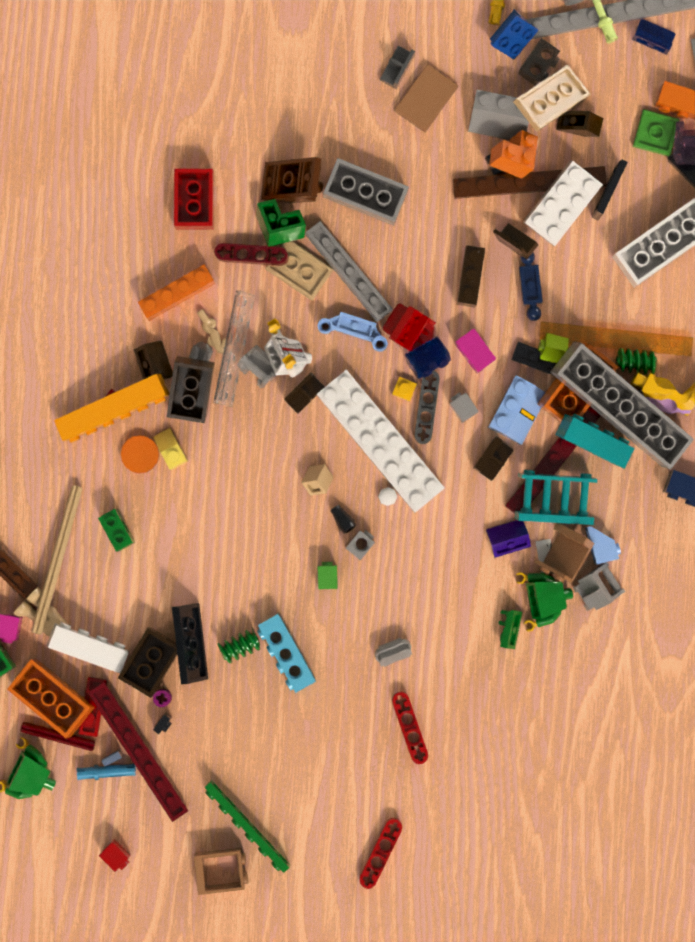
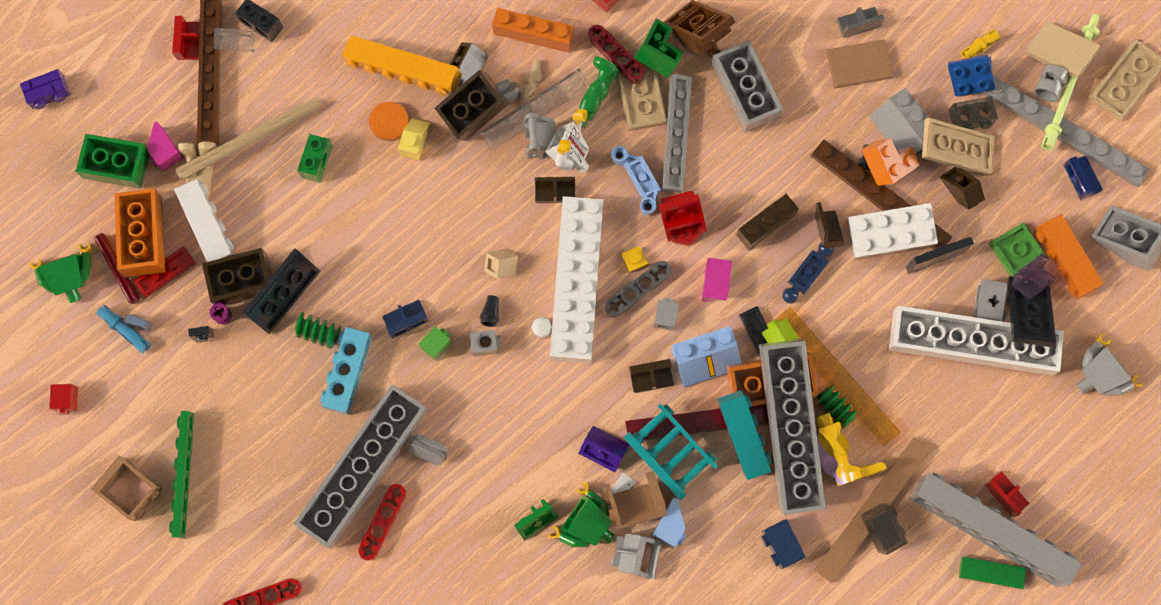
camera: 45 degrees right, 10 degrees down
(138, 751) = (161, 336): dark red plate -> none
(265, 292) = (599, 88): none -> green piece
(289, 579) = (405, 318): none -> dark blue panel
(362, 706) = (361, 467): none -> light grey brick
(428, 357) = (675, 250): clear blue brick -> none
(673, 199) = (994, 291): none -> light grey brick

